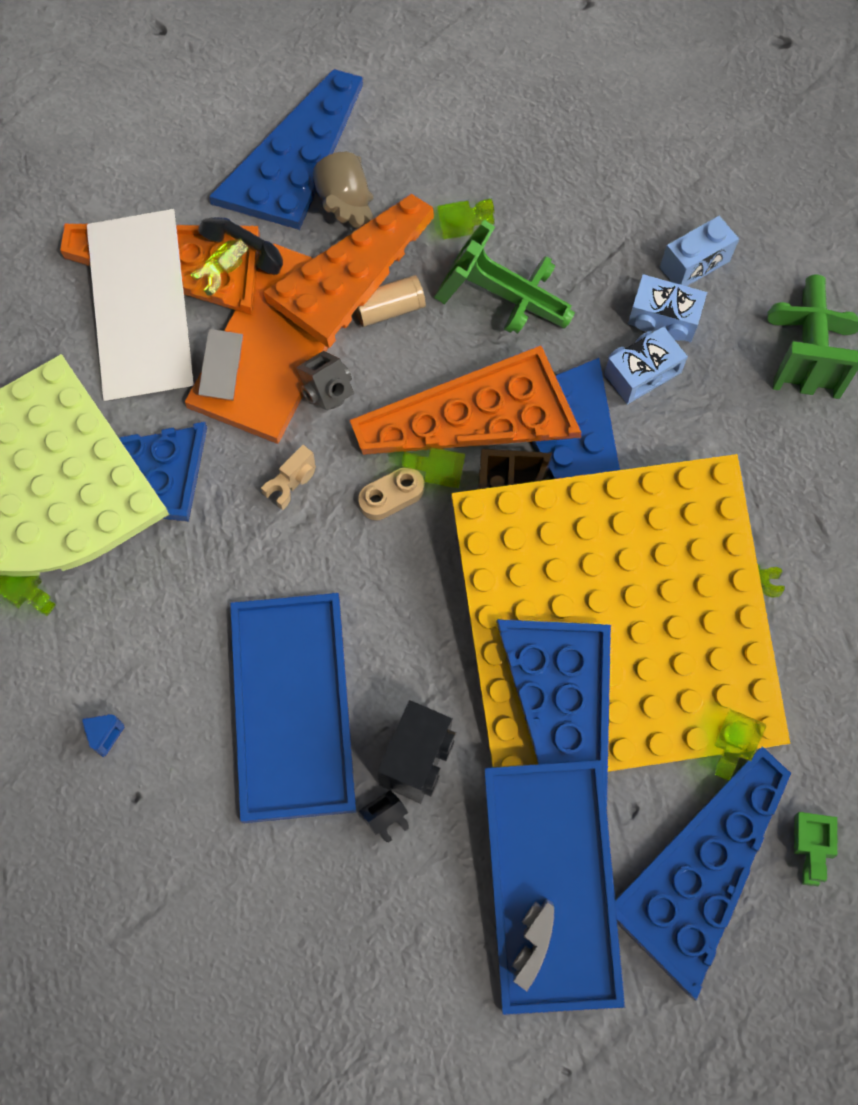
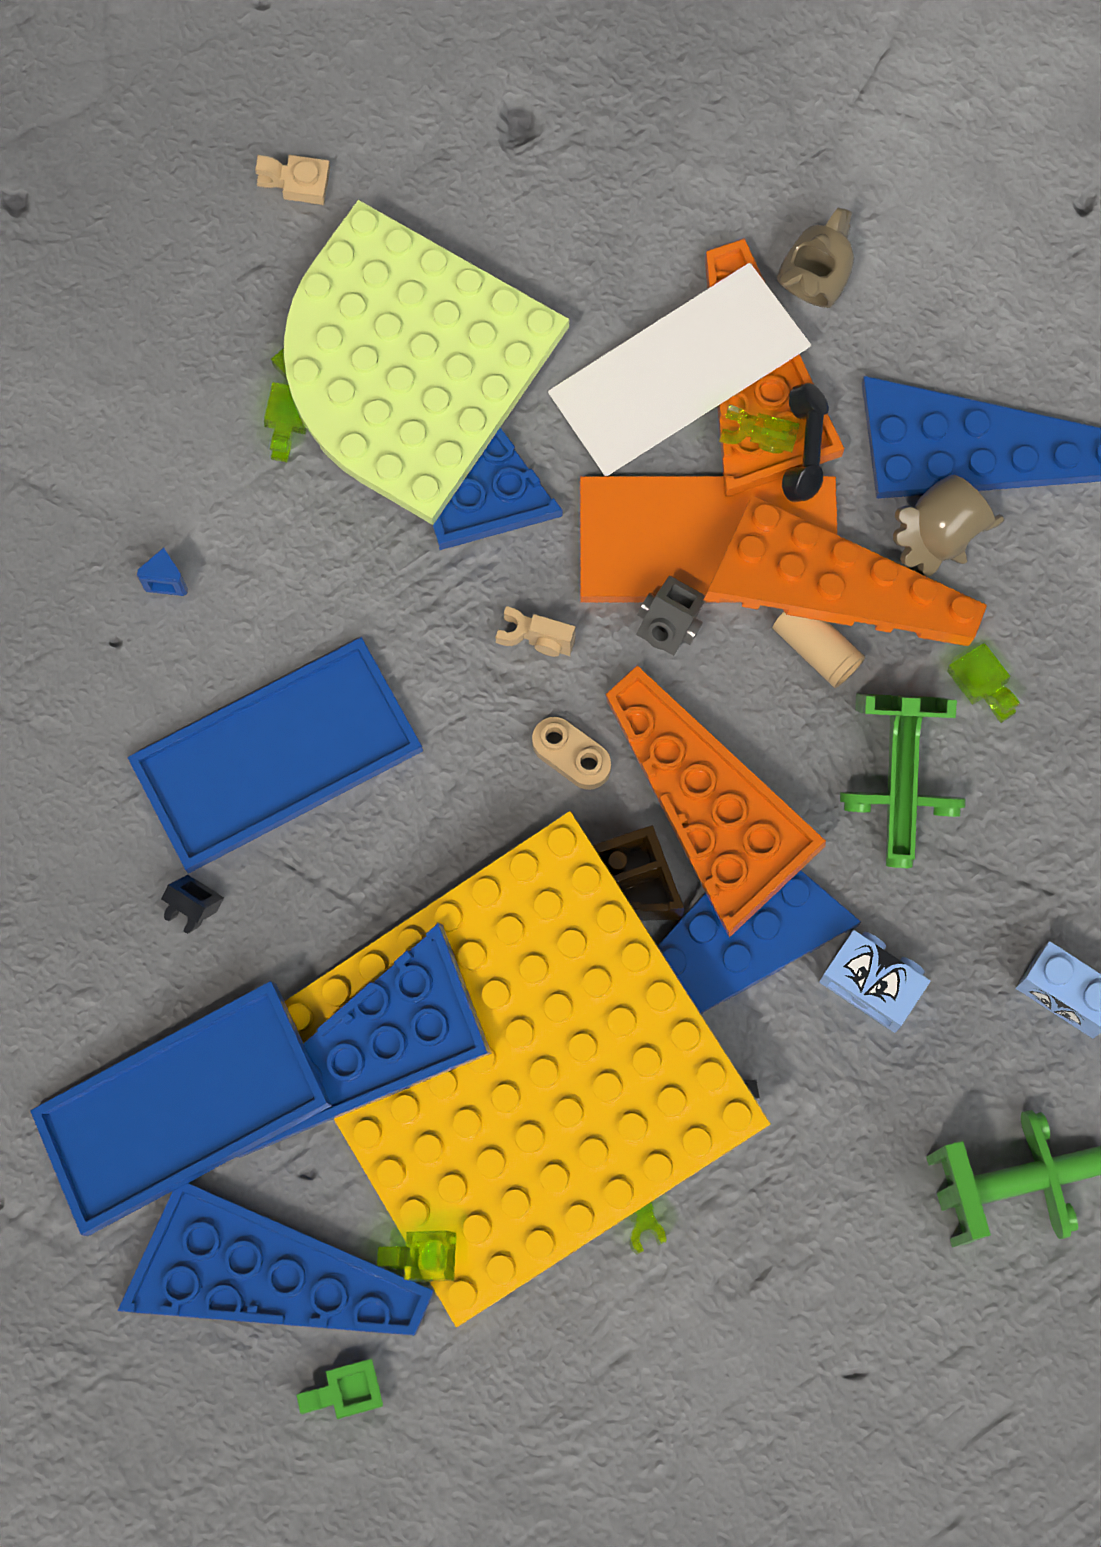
camera: 70 degrees right, 5 degrees up
(113, 183) = (820, 261): none -> dark tan piece
(220, 364) = (637, 492): light grey slope -> none
(415, 752) = (263, 903): black brick -> none
(440, 467) = (626, 791): clear neon green plate -> none
(538, 931) = (112, 1111): light grey slope -> none
(667, 306) = (968, 979): light blue brick -> none

